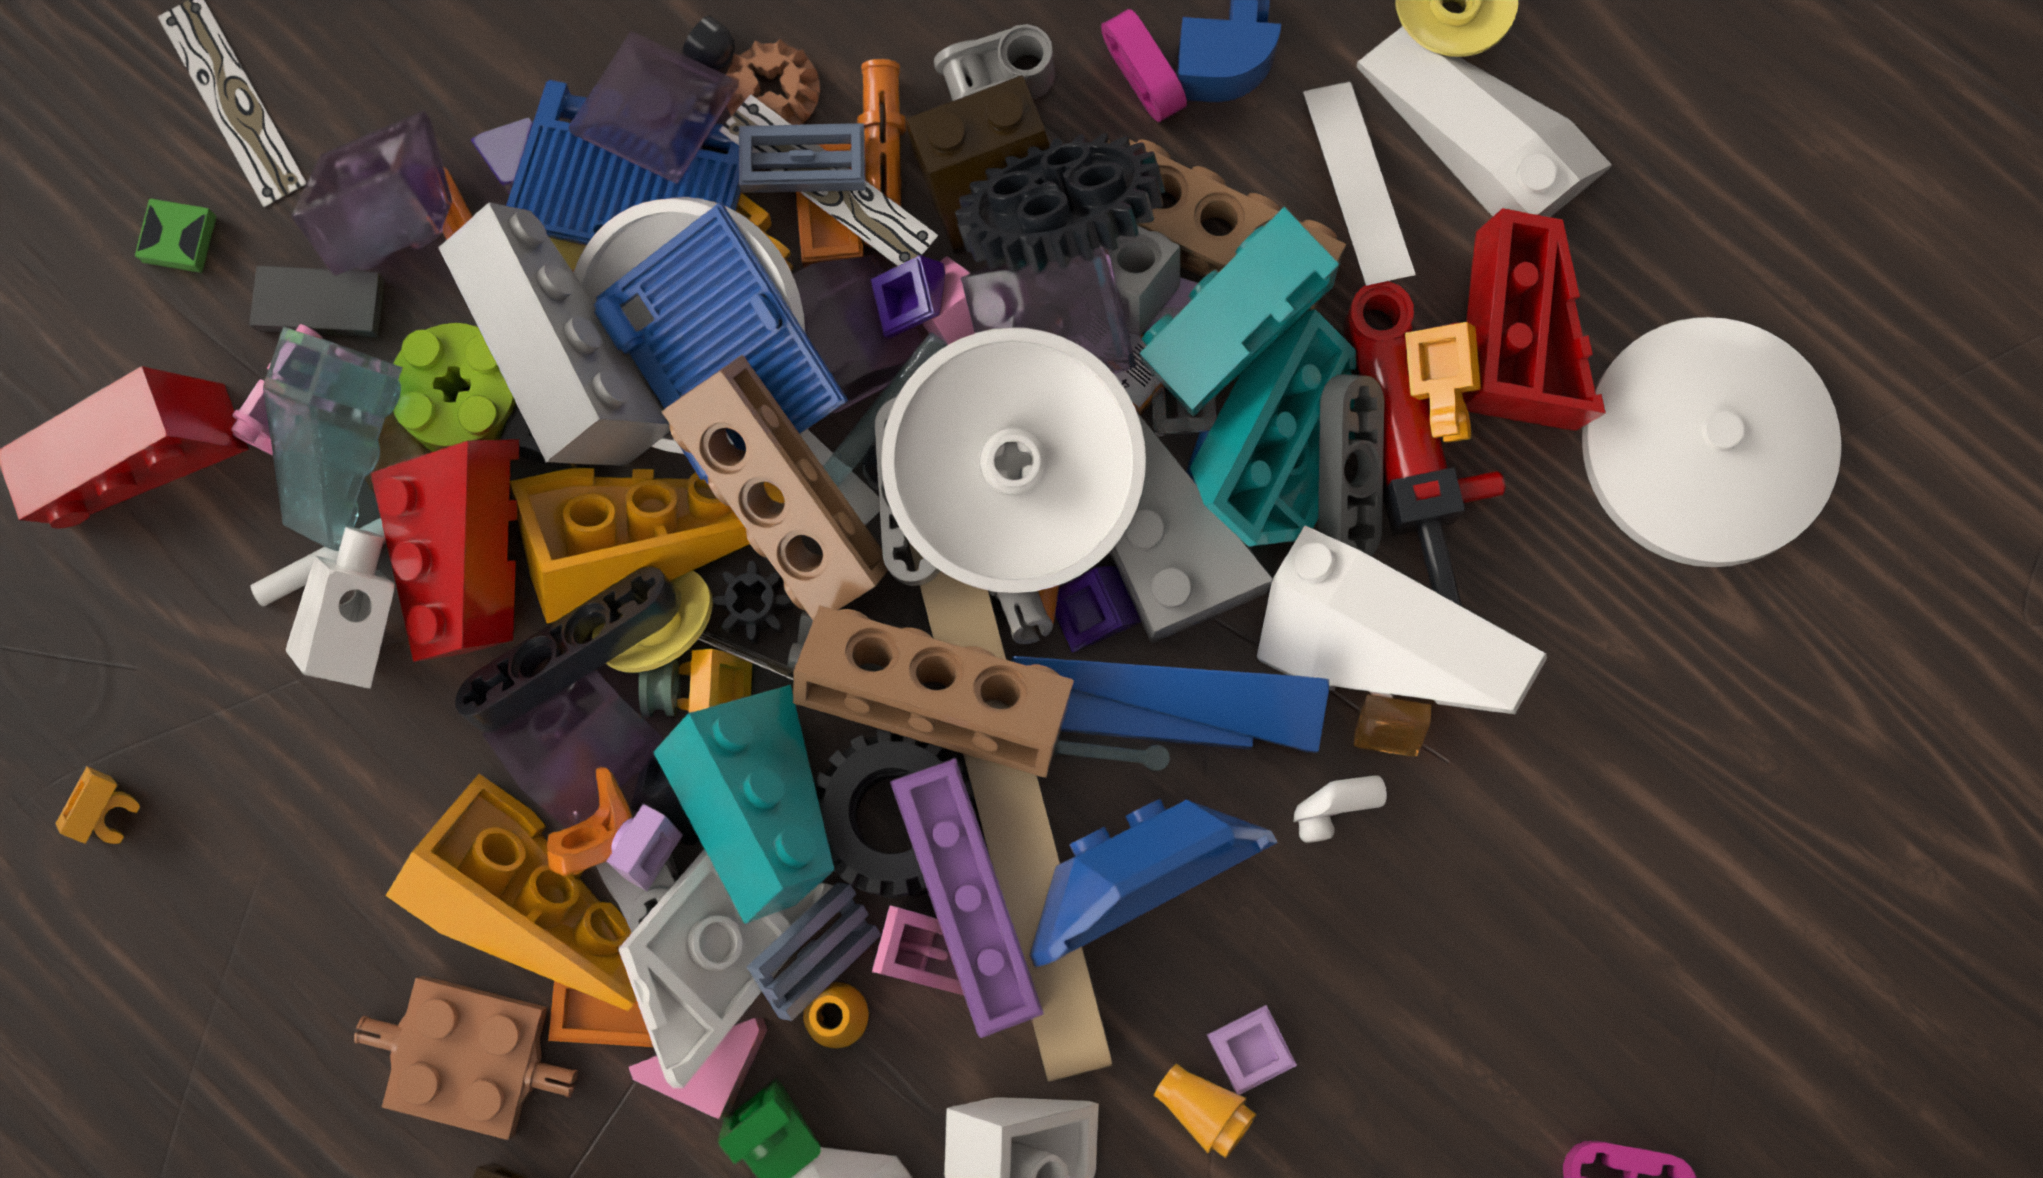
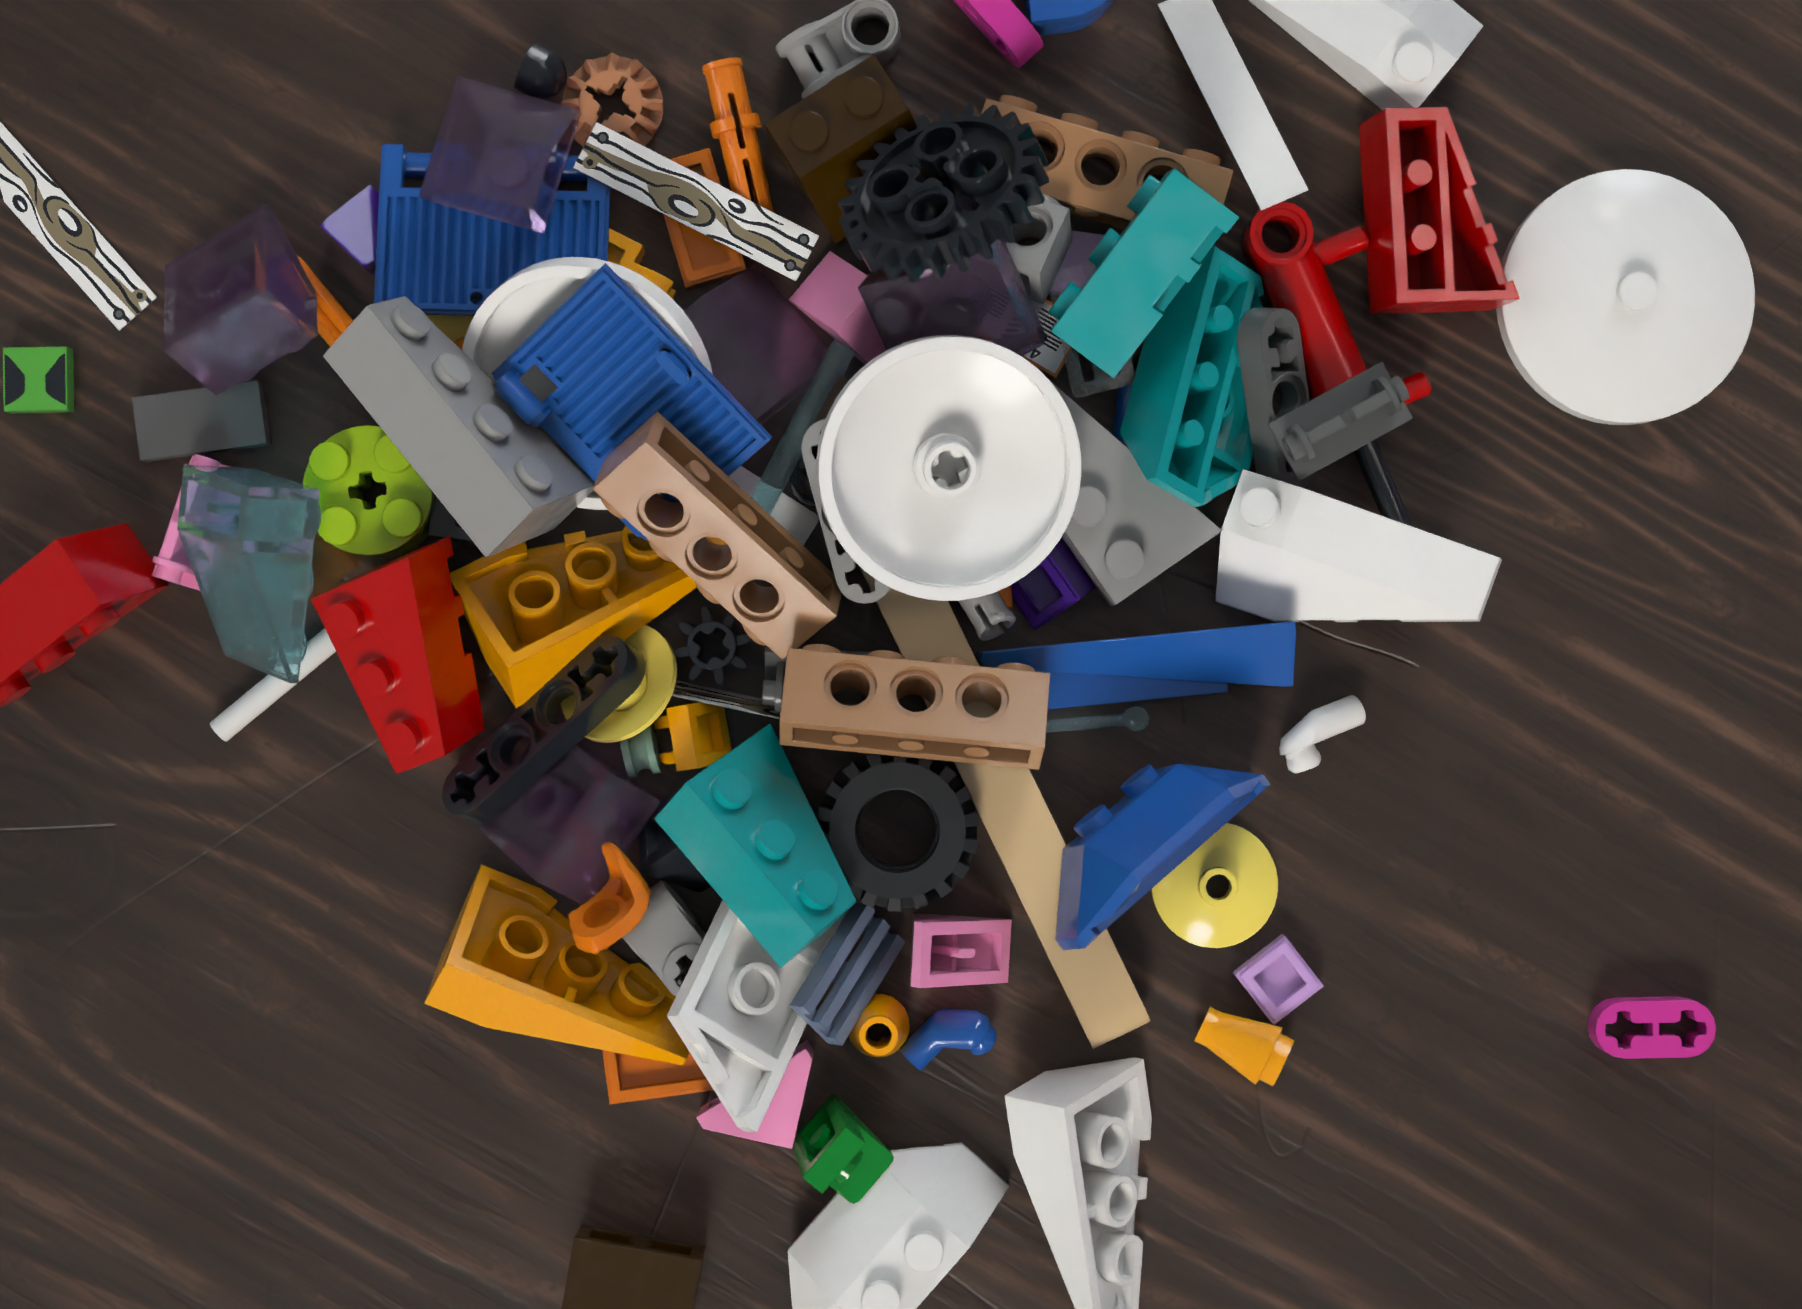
camera: 15 degrees left, 10 degrees up
(88, 806) = (108, 971): light orange tile -> none
(344, 638) = (317, 743): white torso -> none
(465, 1057) = (533, 1134): nougat plate -> none
(643, 847) = (665, 912): lavender plate -> none
(802, 180) = (670, 207): sand blue tile -> none
(906, 1033) = (950, 1030): none -> blue arm
(909, 294) = (805, 307): dark purple slope -> none
(967, 898) = (986, 898): medium lavender tile -> none
(1198, 976) = (1226, 920): none -> light yellow dish
(1392, 725) = (1359, 646): clear orange tile -> none
(1410, 495) = (1341, 420): none -> dark grey hinge
(1442, 368) = (1352, 285): light orange plate -> none

